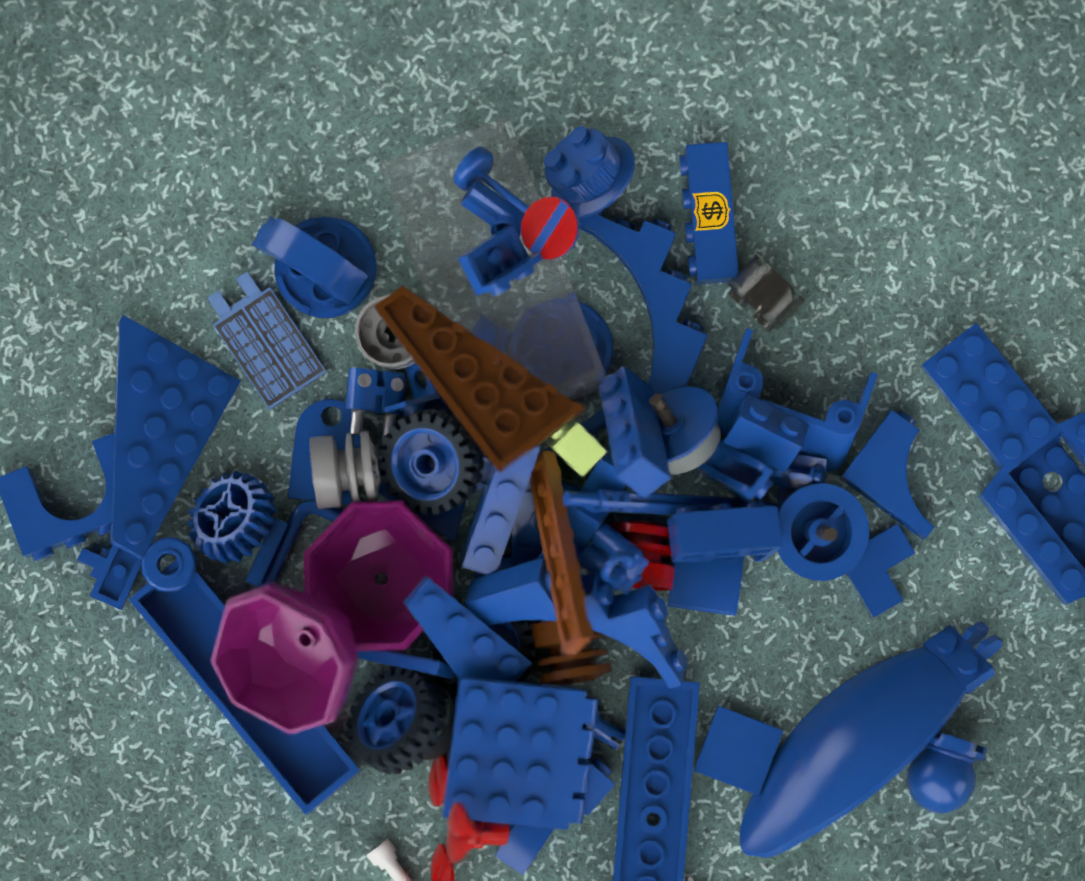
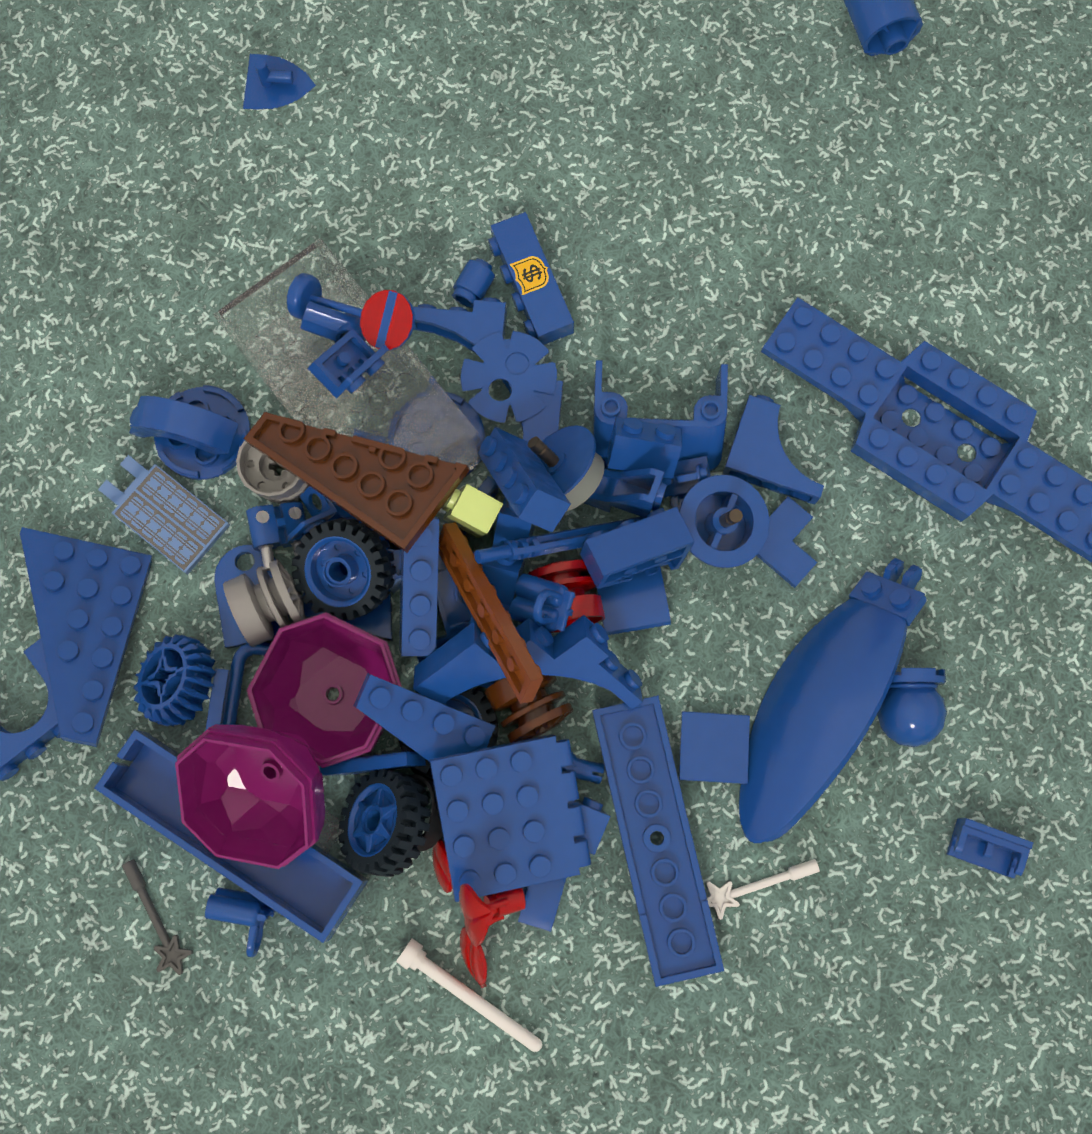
camera: 15 degrees left, 5 degrees down
(114, 573) = (80, 768): blue hinge -> none
(152, 776) = (170, 951): none -> dark grey piece
(155, 553) = (108, 740): blue piece -> none
(235, 759) = (240, 909): none -> blue piece
(589, 170) = (411, 268): blue piece -> none
(647, 285) = (522, 399): none -> blue piece
(650, 197) = (473, 282): none -> blue brick
(765, 293) = (602, 329): clear smoke brick -> none

